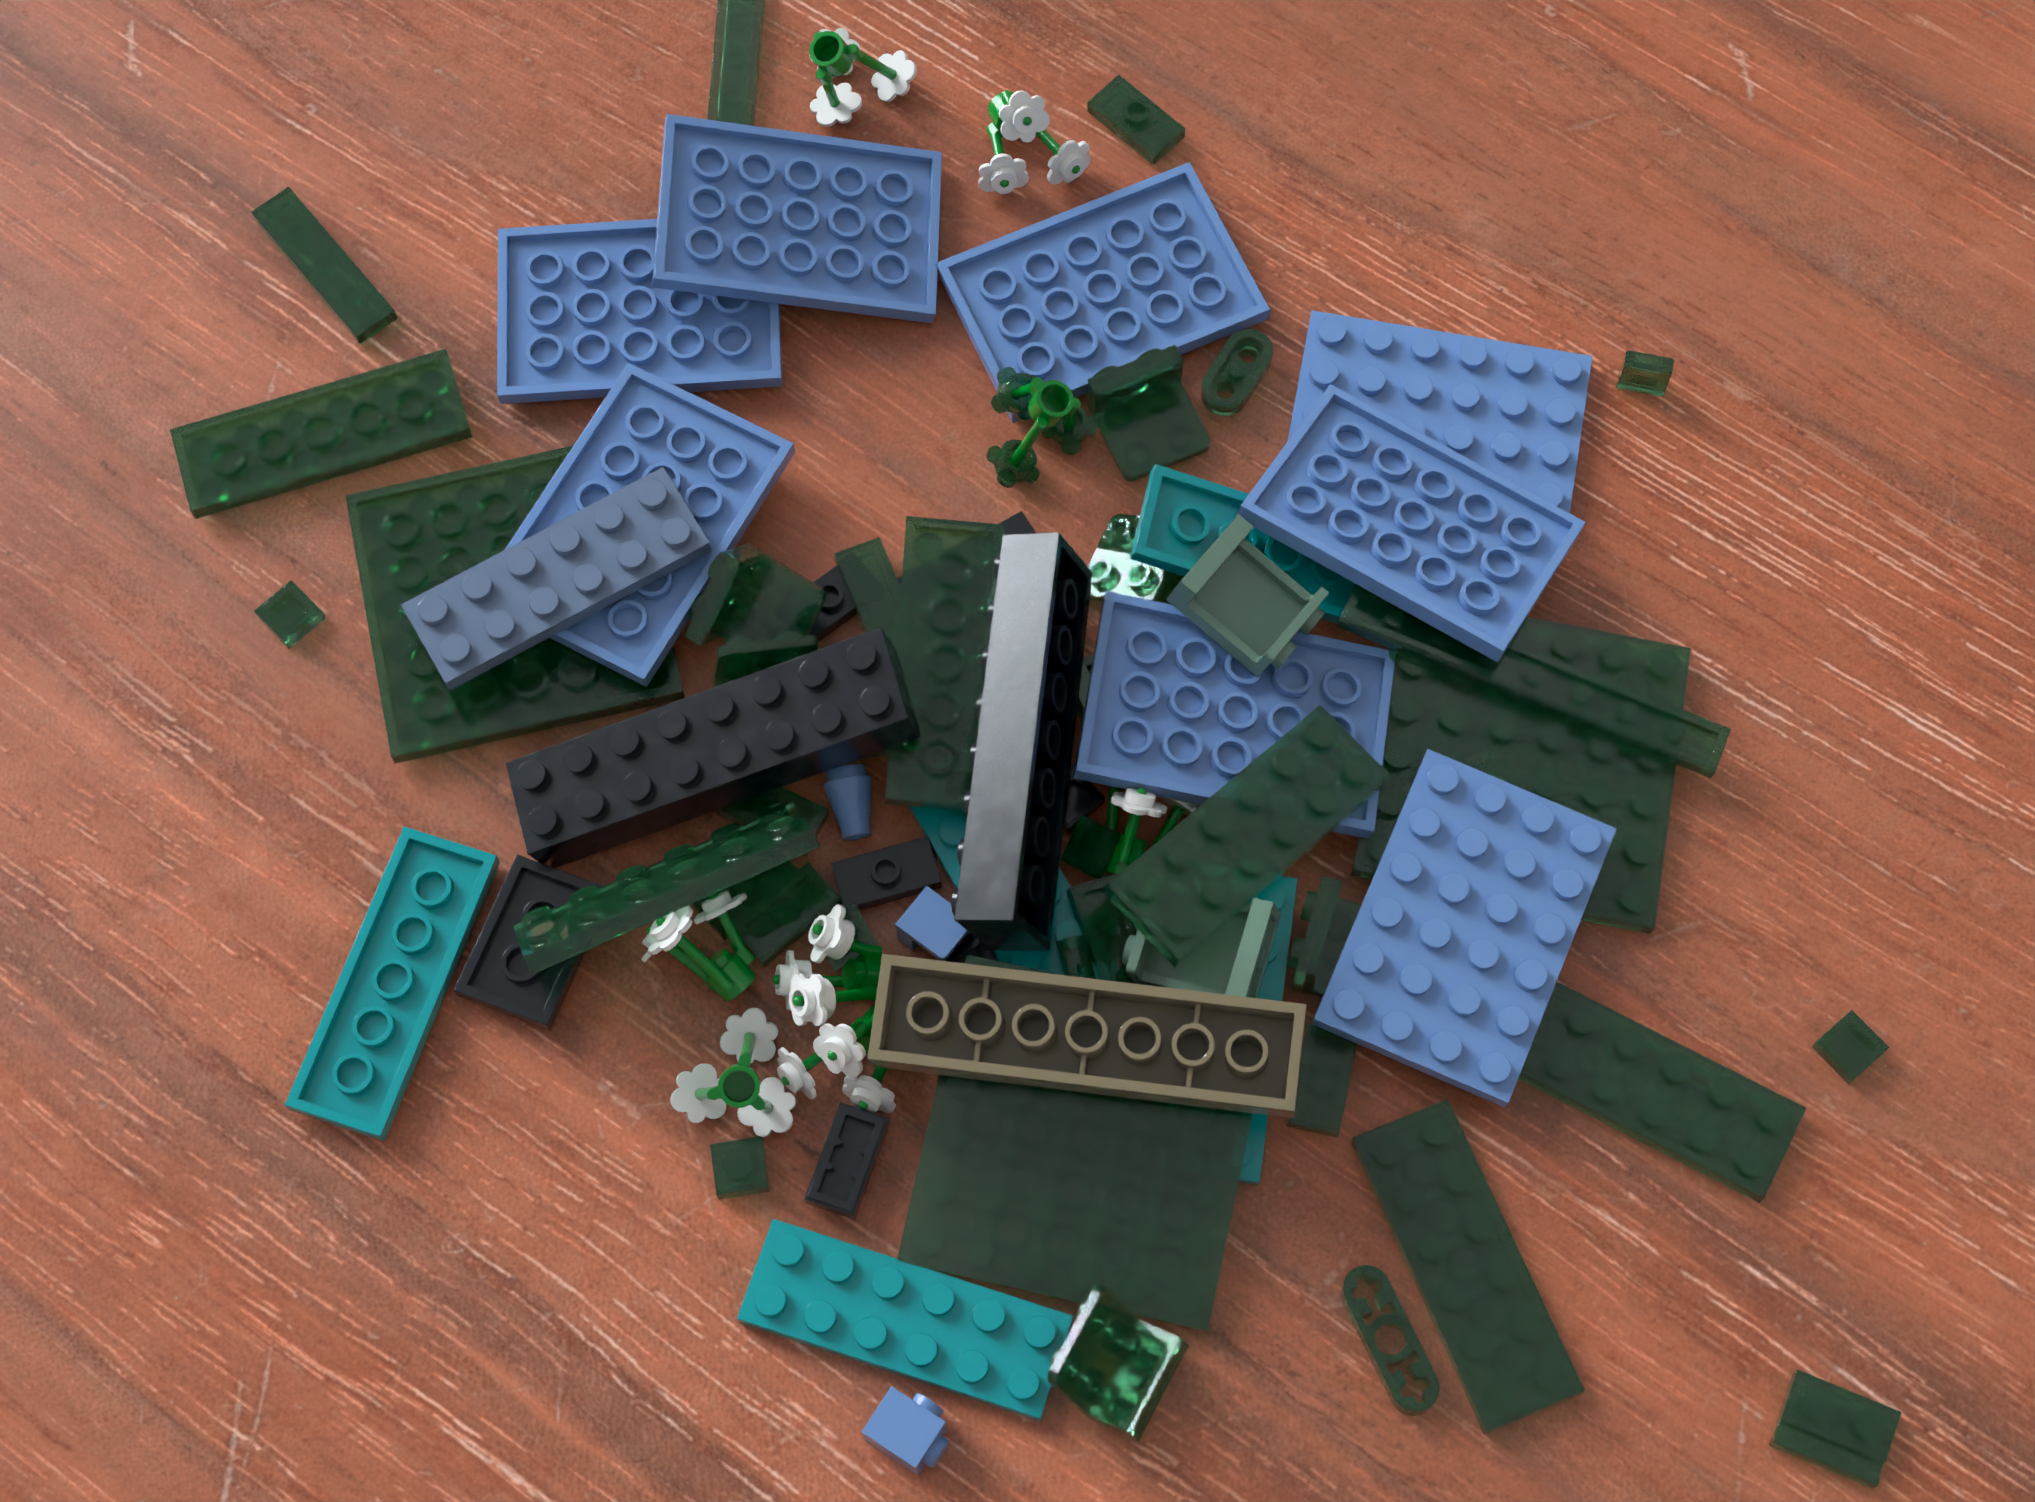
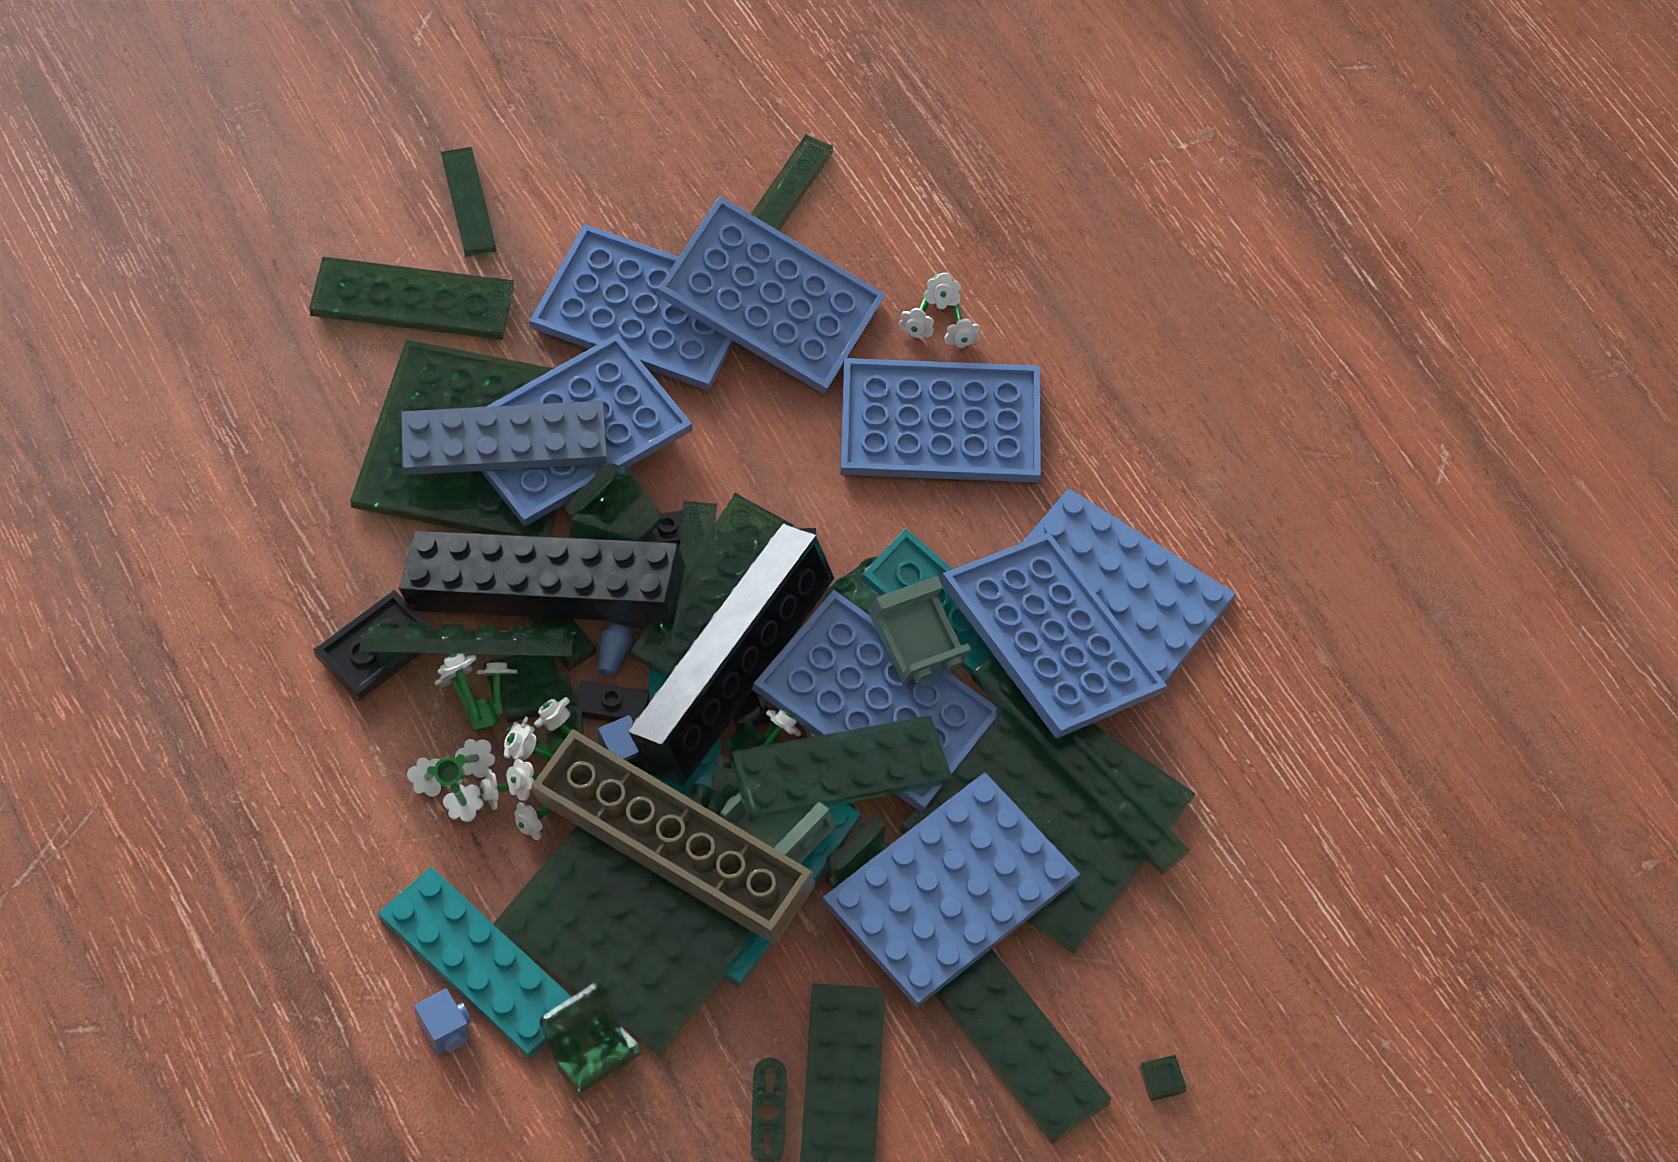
camera: 20 degrees right, 10 degrees down
(290, 614) = (336, 395): clear green tile -> none
(393, 984) = (280, 630): teal plate -> none
(740, 1167) = (428, 830): clear green plate -> none
(834, 57) = (851, 207): plant -> none
(847, 1160) = (494, 854): black plate -> none
(1055, 417) = (860, 466): clear green plant -> none
(1136, 119) = (1022, 327): clear green plate -> none
(1146, 413) = (927, 501): clear green bracket -> none
(1233, 374) = (996, 504): clear green plate -> none
(1322, 1082) = (811, 943): clear green plate -> none
(1645, 373) = (1263, 617): clear green tile -> none

